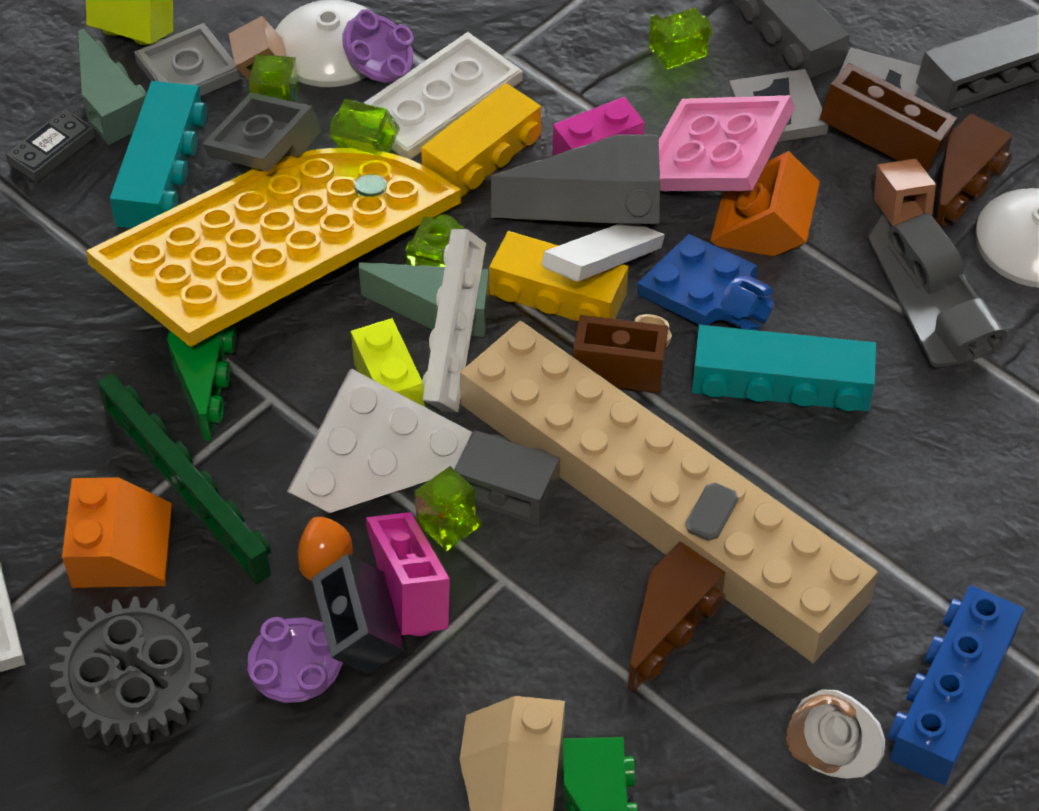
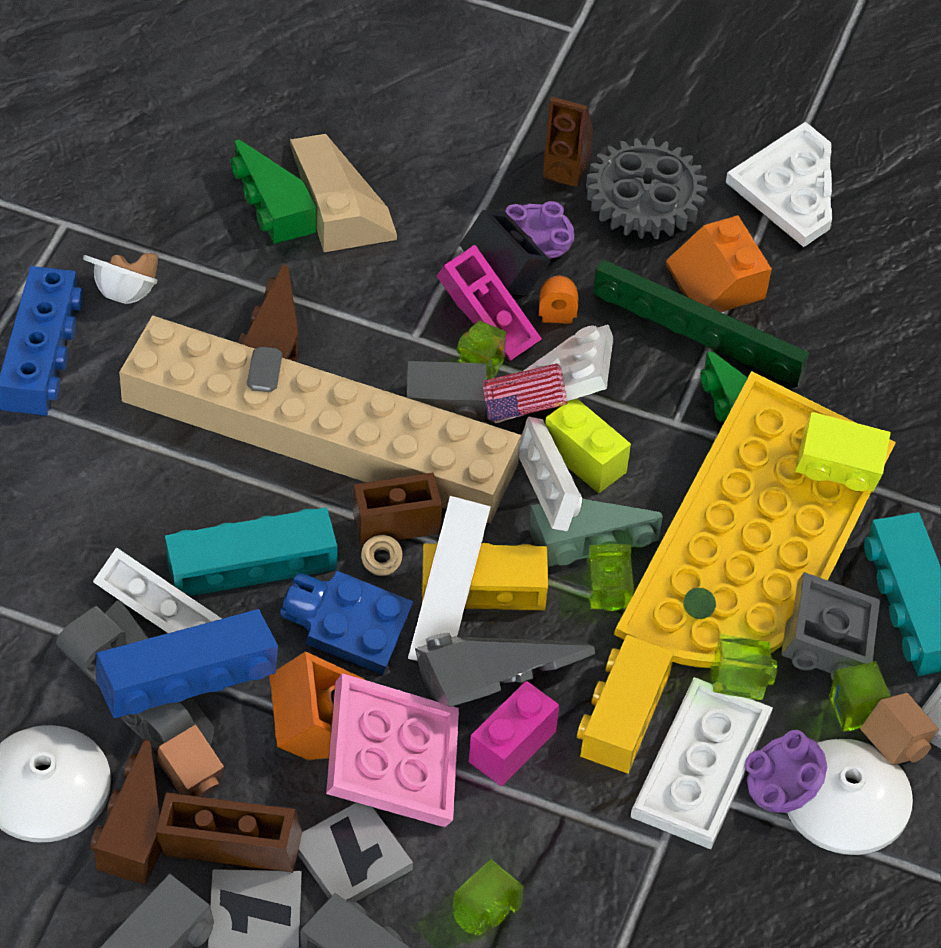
camera: 155 degrees right, 0 degrees up
(154, 232) = (842, 452): none -> neon yellow brick
(197, 727) = (567, 142): none -> reddish brown slope
(434, 407) = (524, 392): none -> clear pink tile
(892, 233) = (186, 663): none -> blue brick
(894, 348) = (151, 594): none -> white plate

